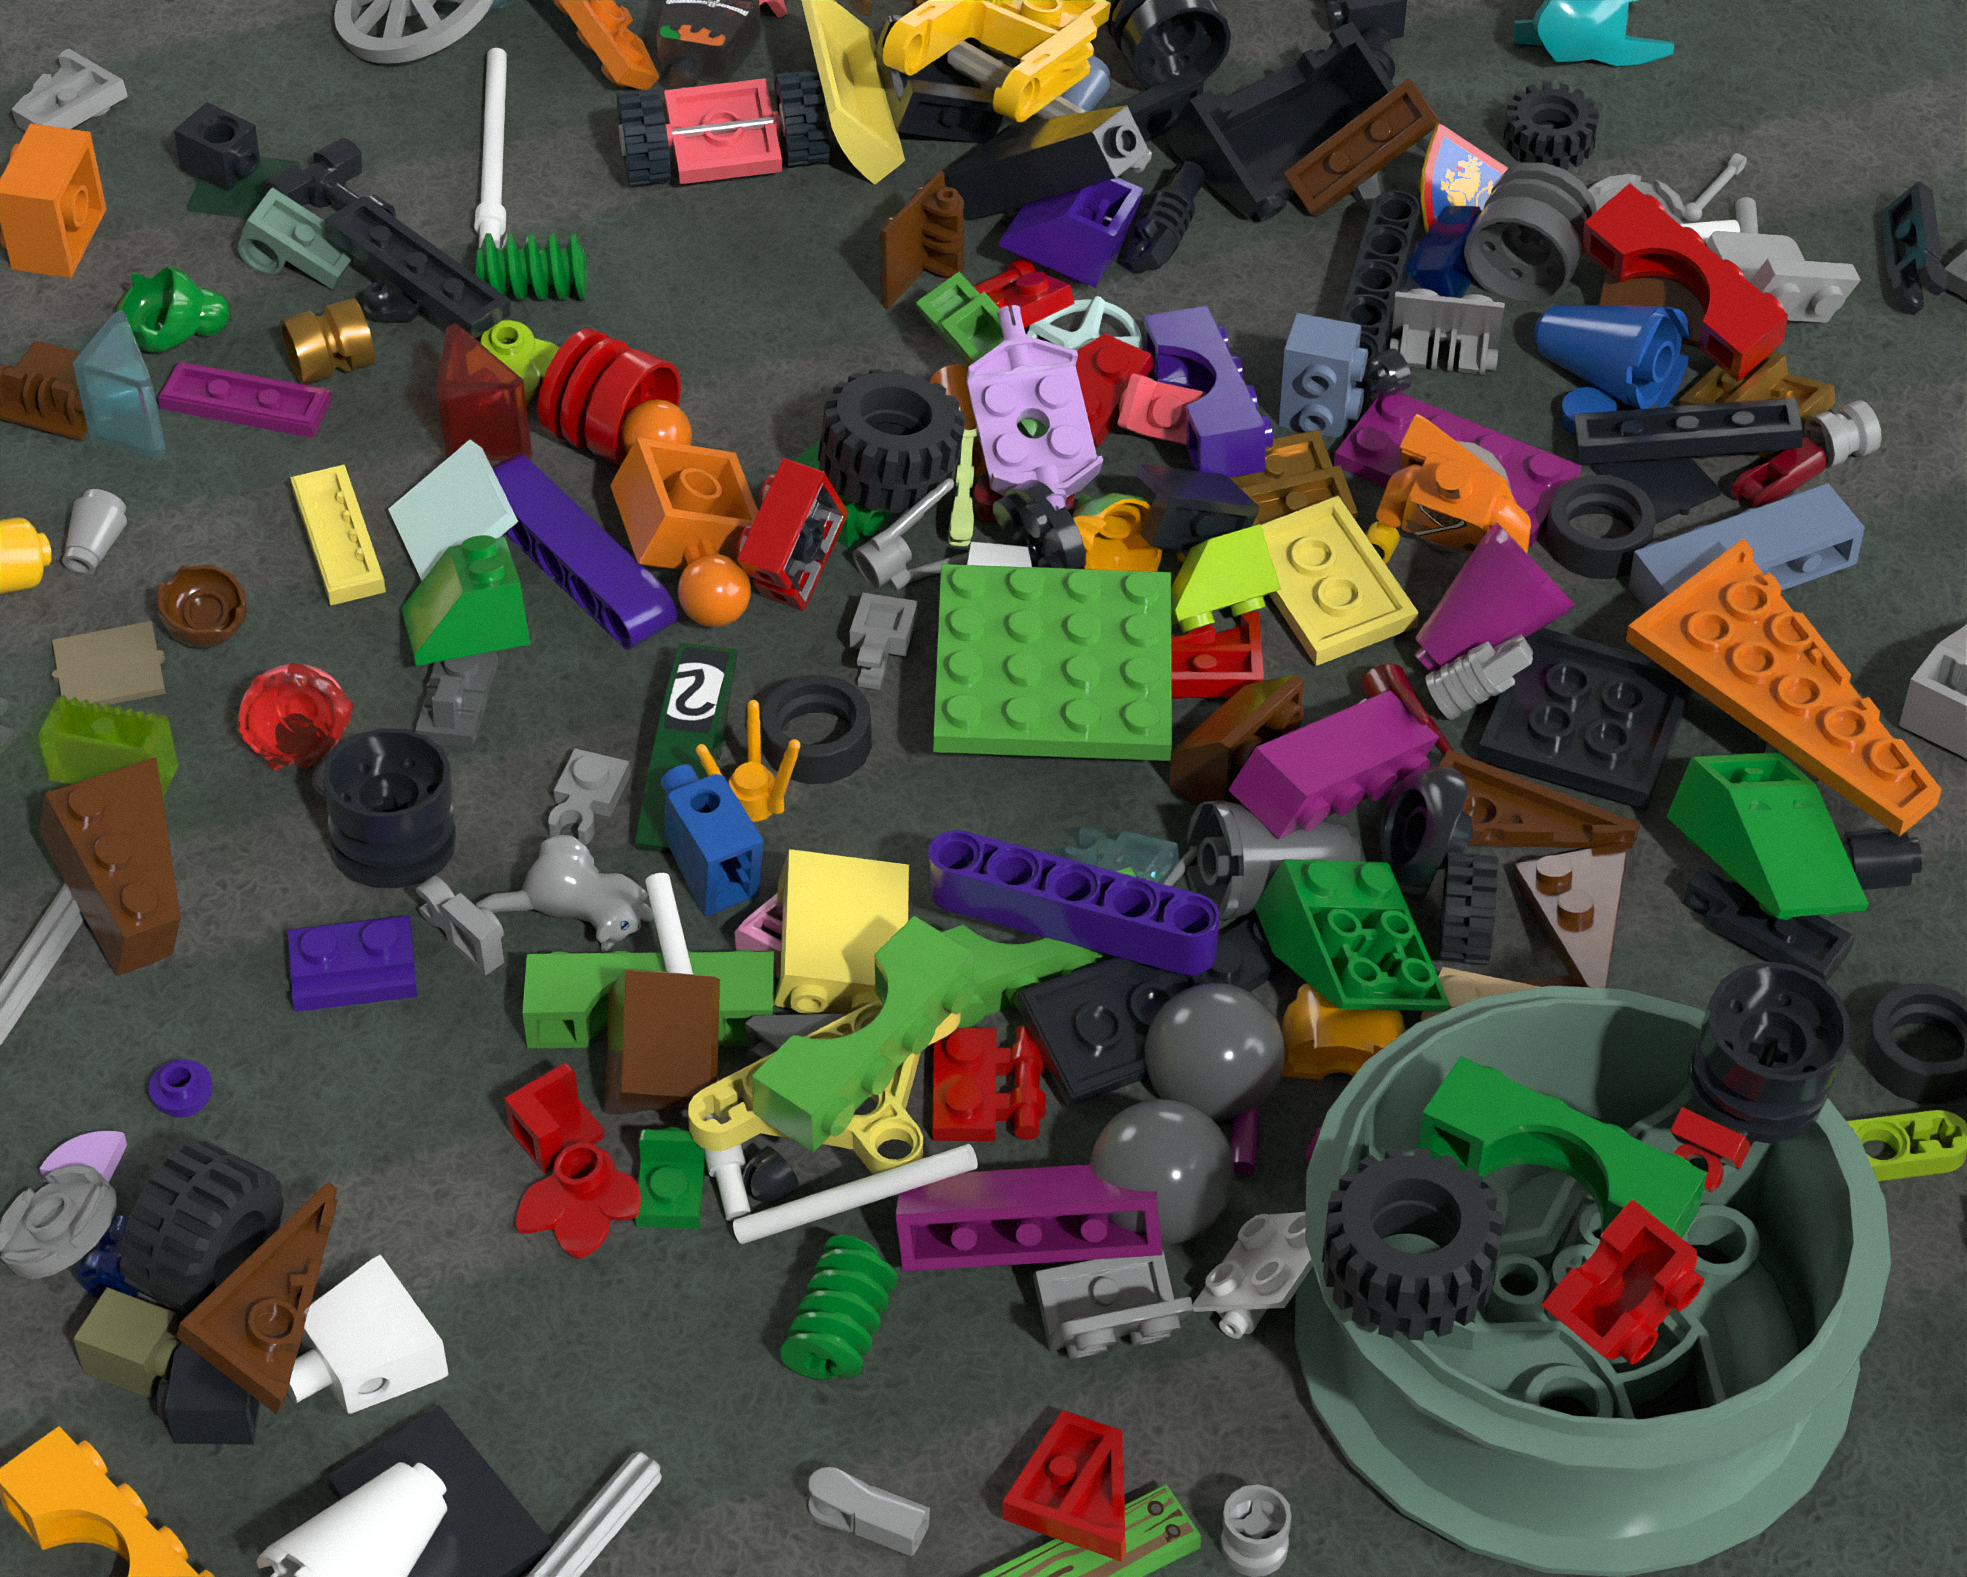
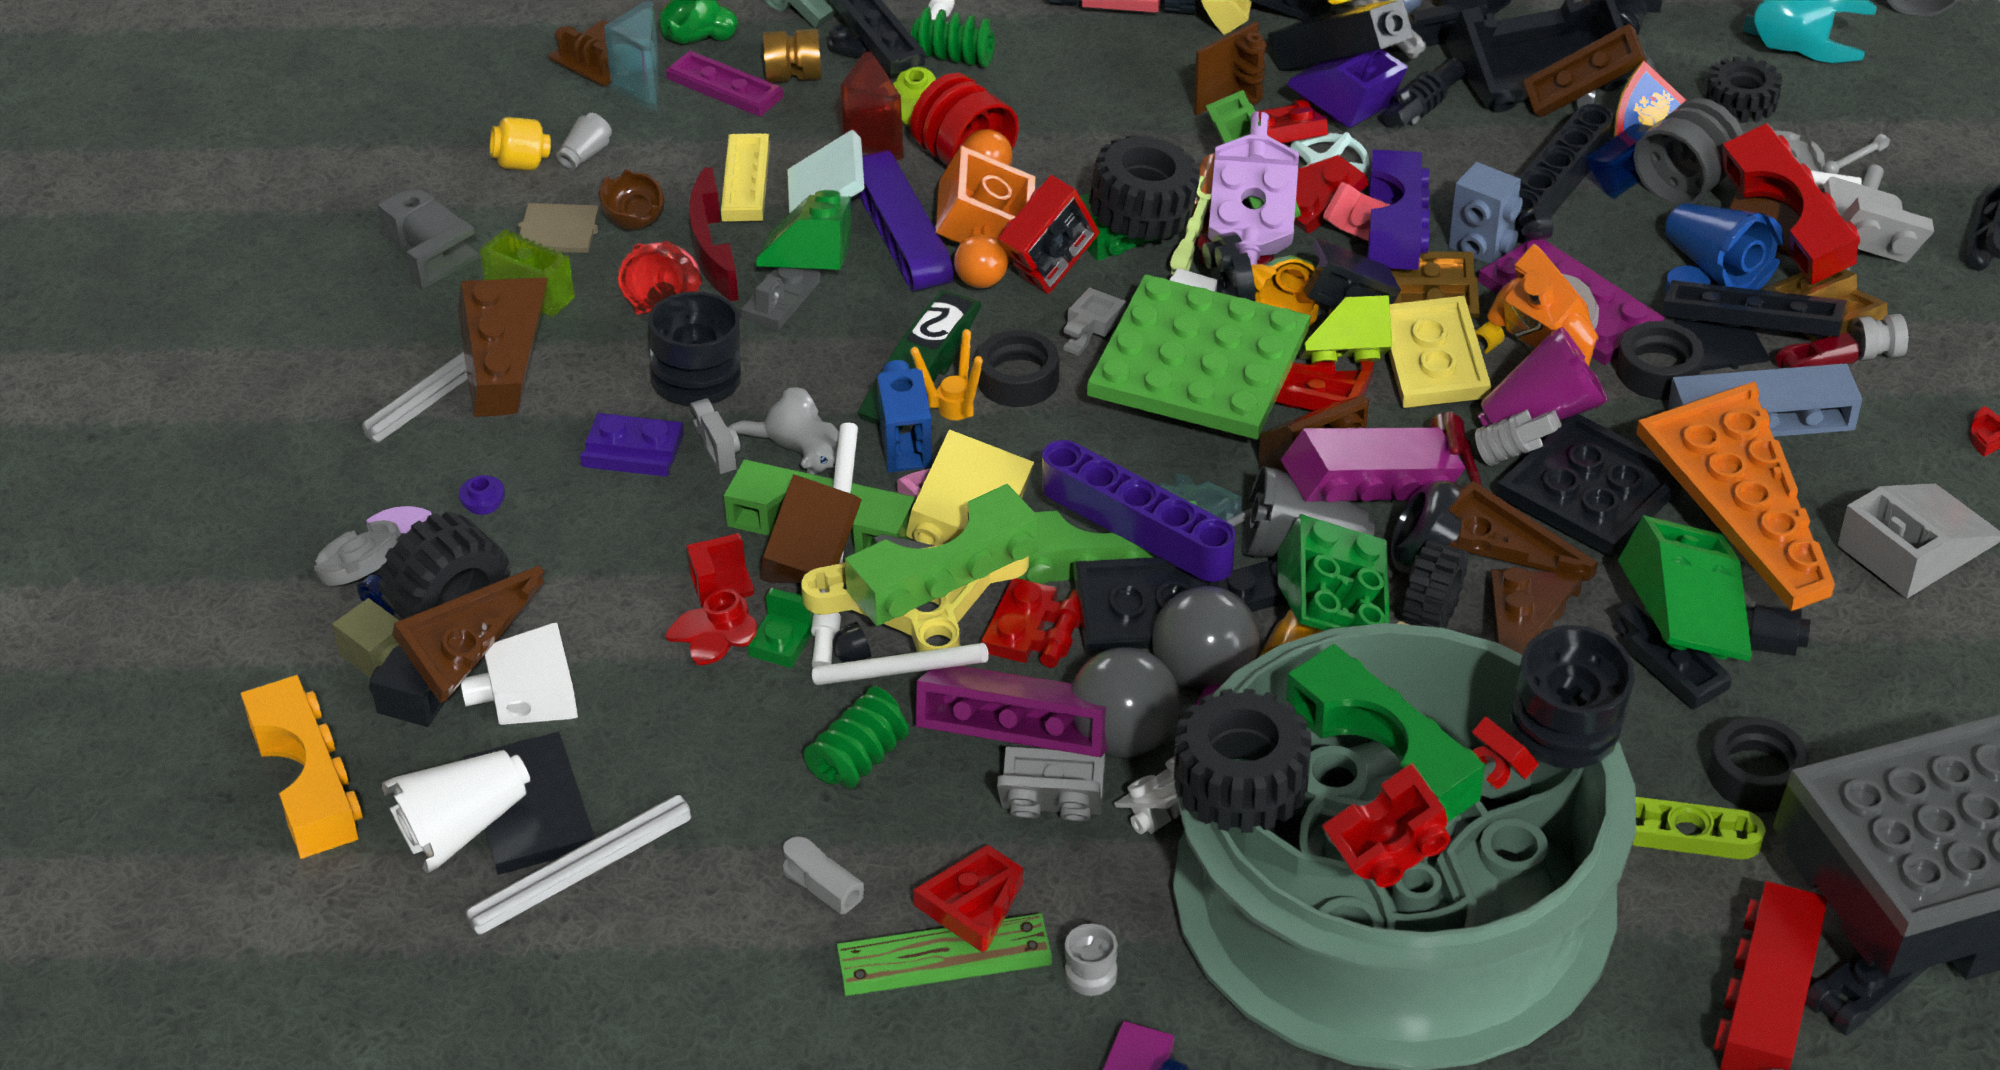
camera: 20 degrees right, 5 degrees down
(358, 670) = (713, 260): none -> dark red slope
(586, 787) = (842, 370): light grey plate -> none
(886, 554) = (1119, 265): light grey plant -> none
(1466, 322) = (1599, 197): light grey hinge -> none

